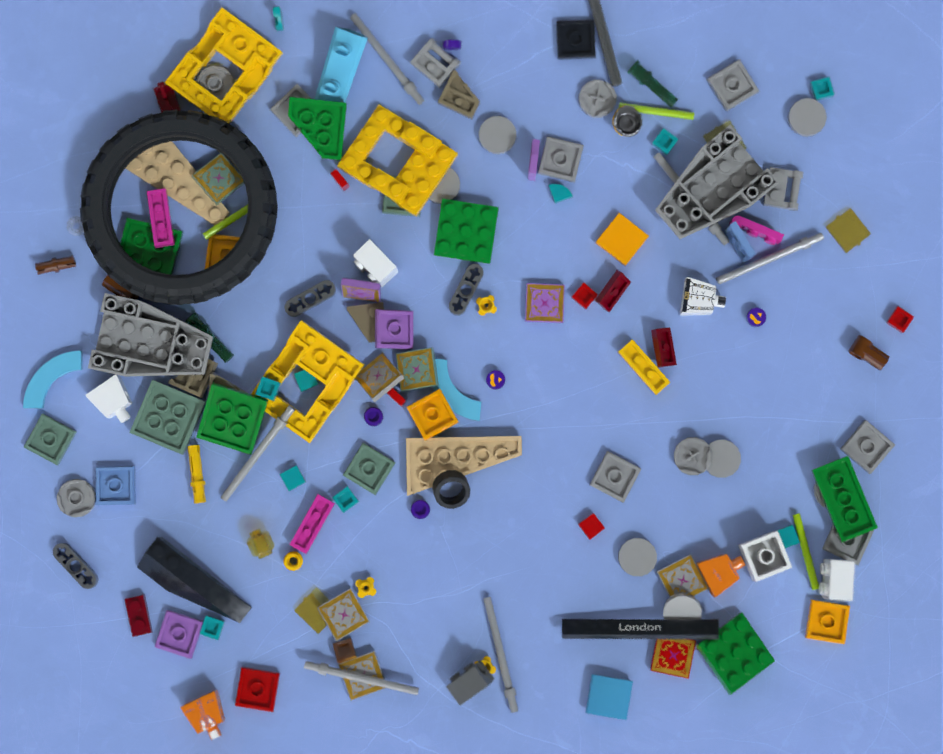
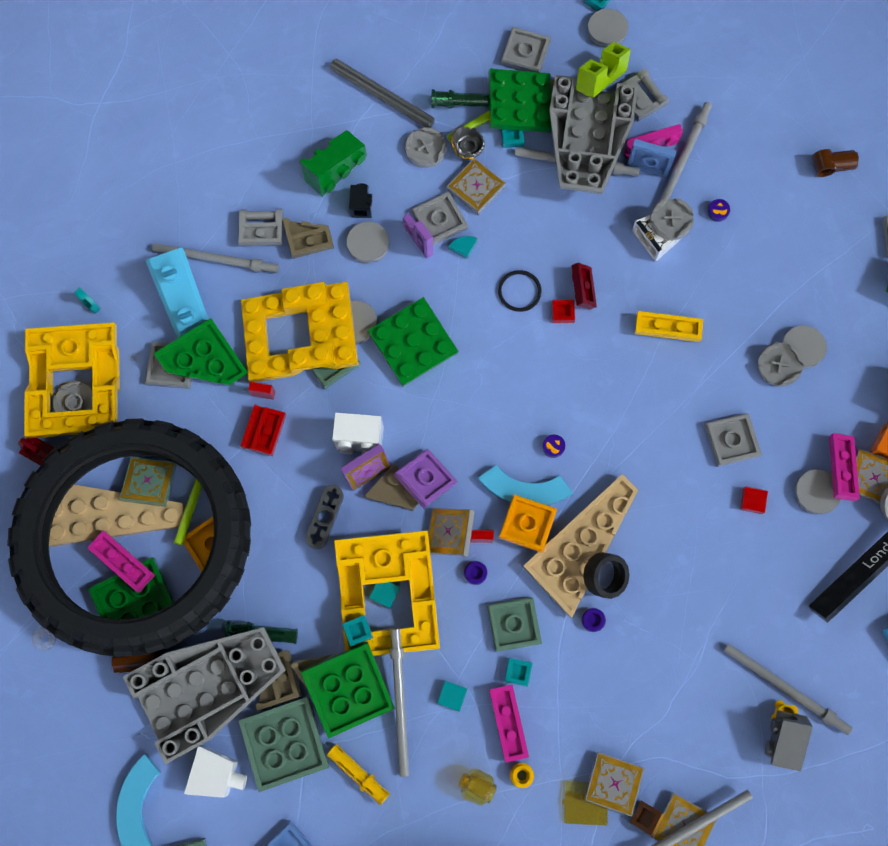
camera: 45 degrees left, 10 degrees down
(55, 265) = (52, 693): reddish brown pin -> none
(319, 207) = (263, 430): none -> red plate
(364, 592) = (618, 737): yellow plate -> none
(417, 369) = (478, 493): tile -> none
(452, 44) = (262, 201): dark purple tile -> none
(477, 279) = (448, 378): dark grey beam -> none
(486, 300) = (485, 383): yellow plate -> none
(517, 101) = (360, 201): none -> black brick
(523, 58) = (333, 163): none -> green wedge
(544, 303) = (535, 345): tile -> none
(573, 273) = (523, 273): none -> black piece
(575, 39) = (365, 116): black tile -> none
(606, 157) = (476, 186): none -> tile
(622, 239) = (551, 240): light orange tile -> none
(663, 347) = (669, 296): dark red plate -> none
(667, 556) = (844, 467): none -> dark pink plate
(691, 120) = (519, 100): none -> green plate
(711, 297) = (671, 219): none -> light grey tile
(754, 150) = (596, 76): none -> lime arch
(848, 230) = (723, 85): clear yellow piece -> none
(900, 319) = (830, 118): red tile -> none

